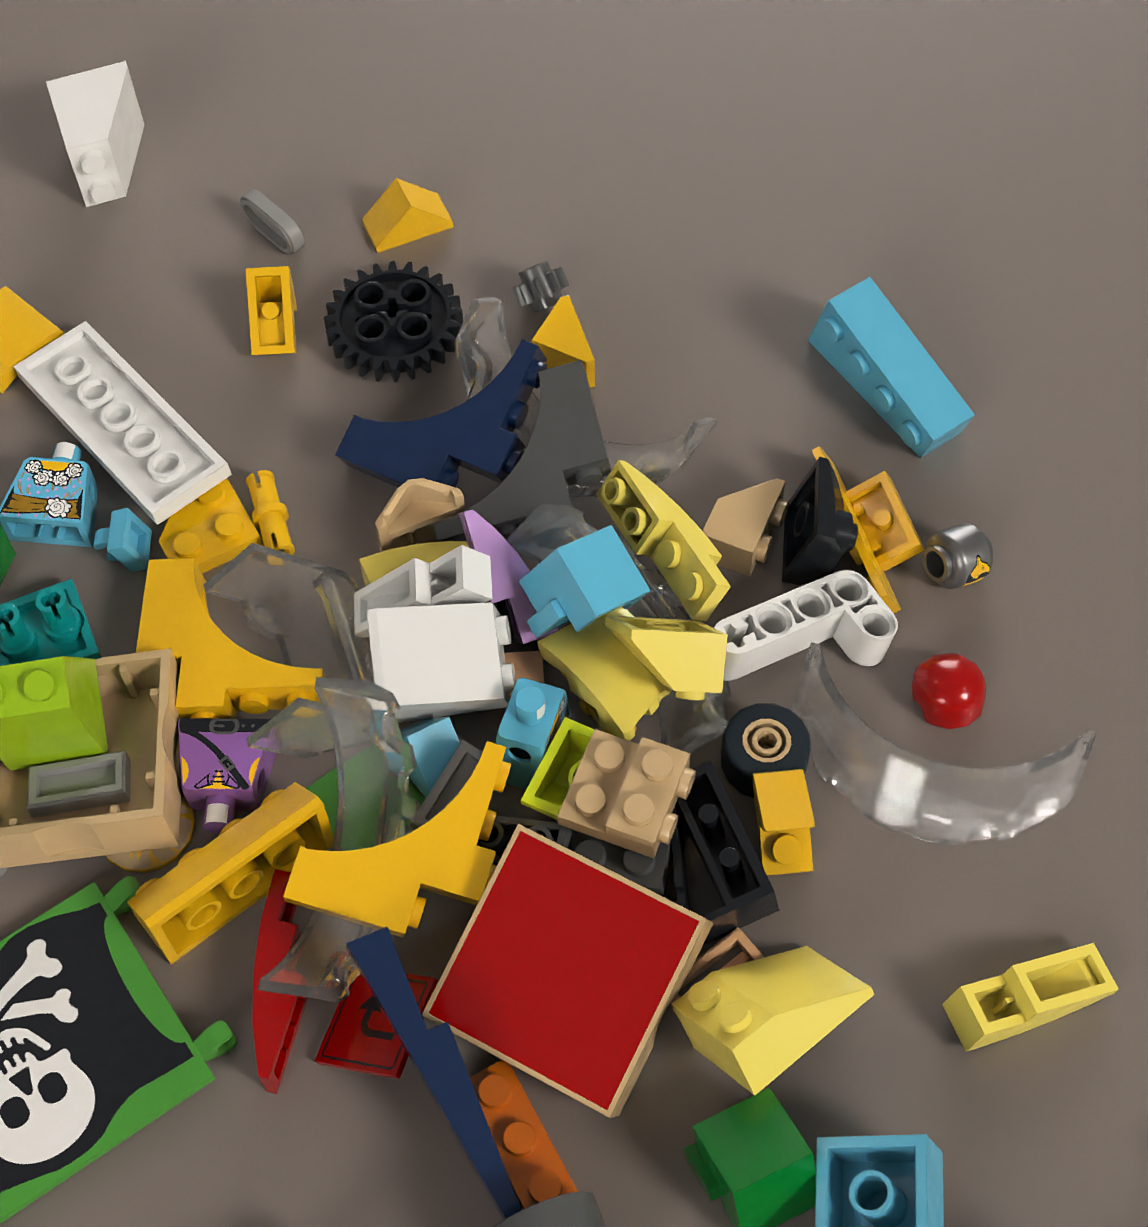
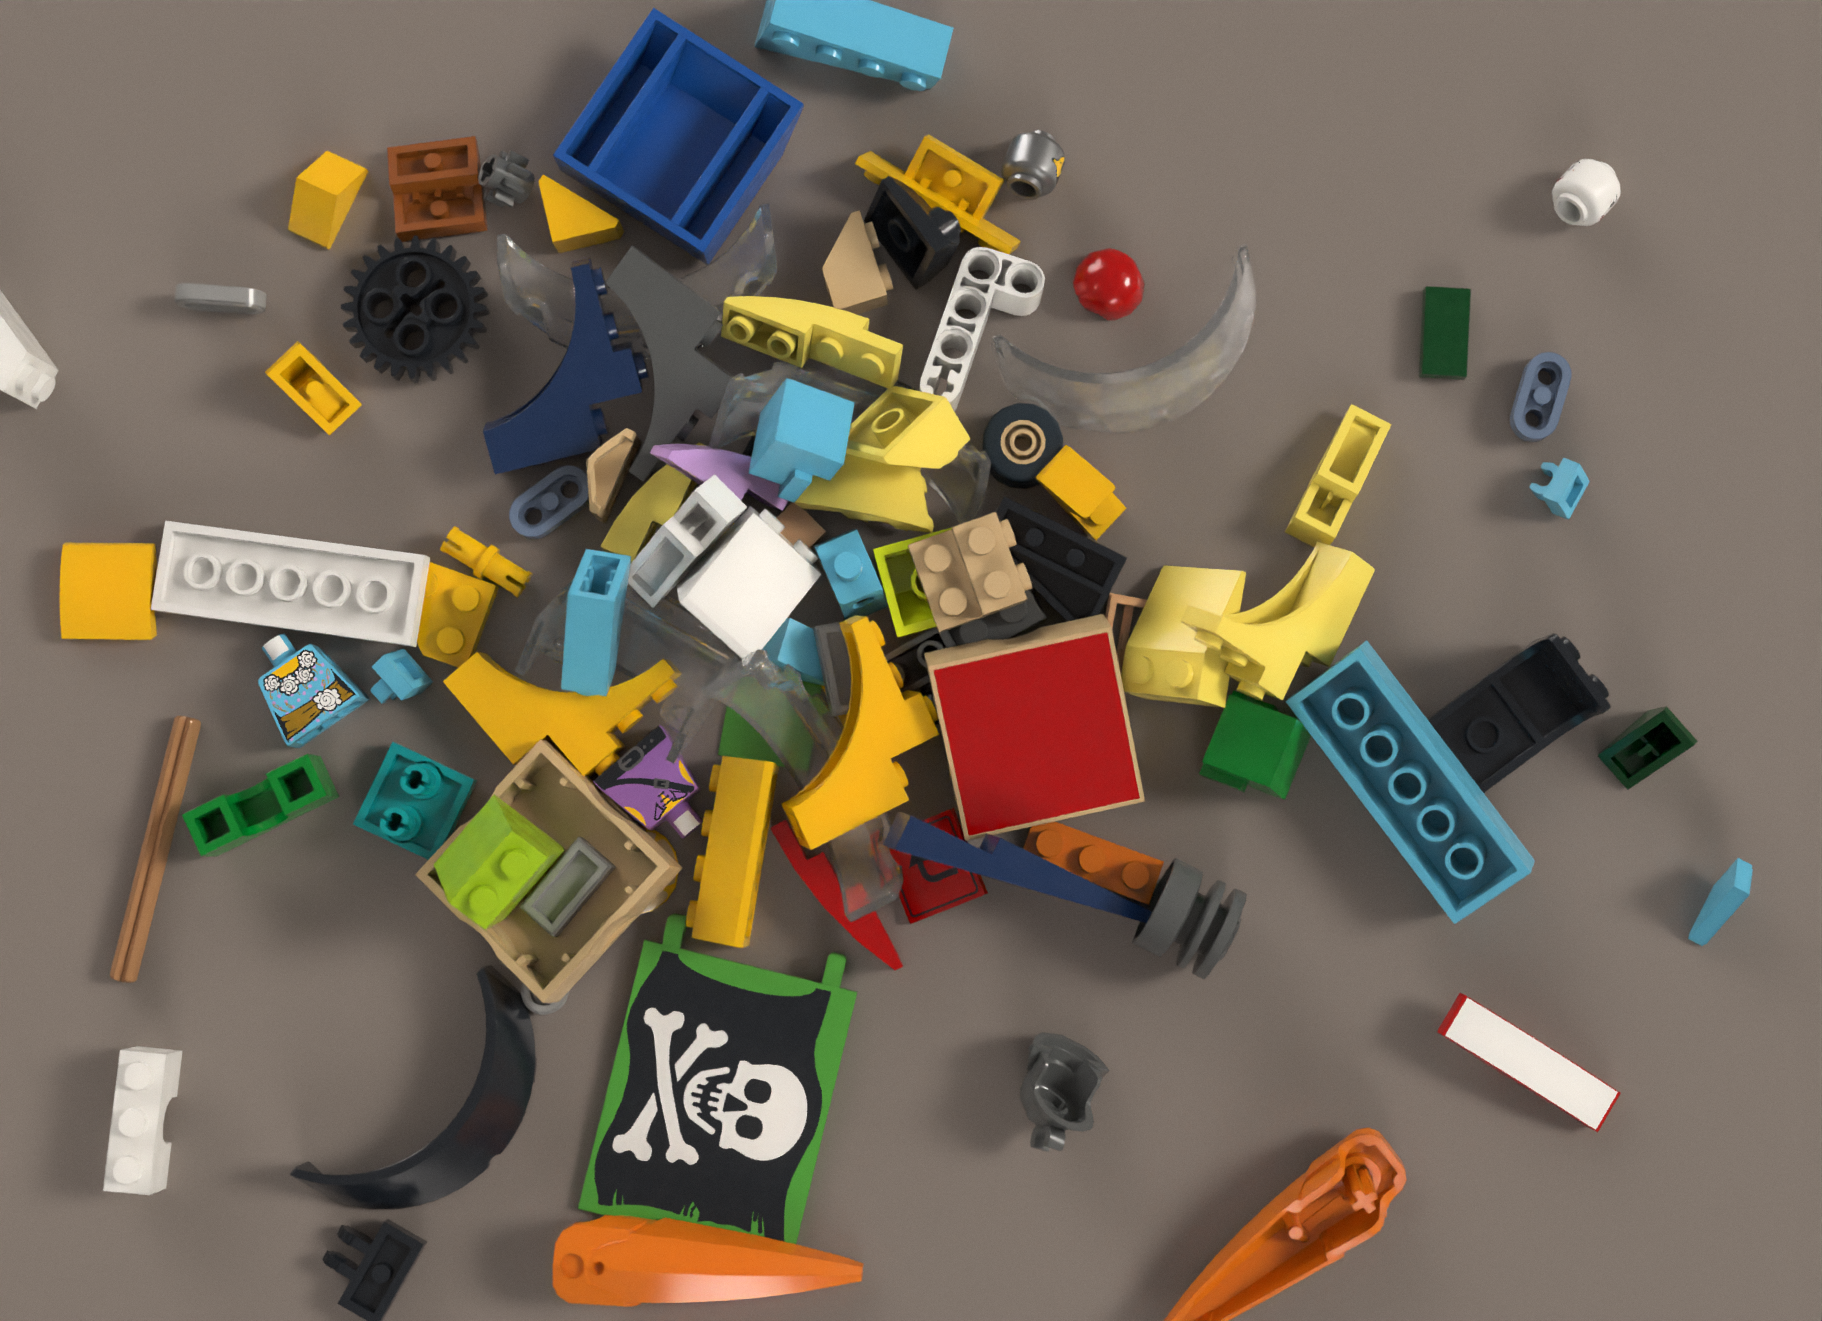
camera: 40 degrees left, 25 degrees up
(294, 595) = (594, 622): none -> medium azure slope
(358, 507) = (549, 499): none -> sand blue plate
(487, 262) = (437, 188): none -> dark orange slope
(693, 343) = (679, 136): none -> blue slope
(879, 1079) = (1292, 627): none -> light yellow arch

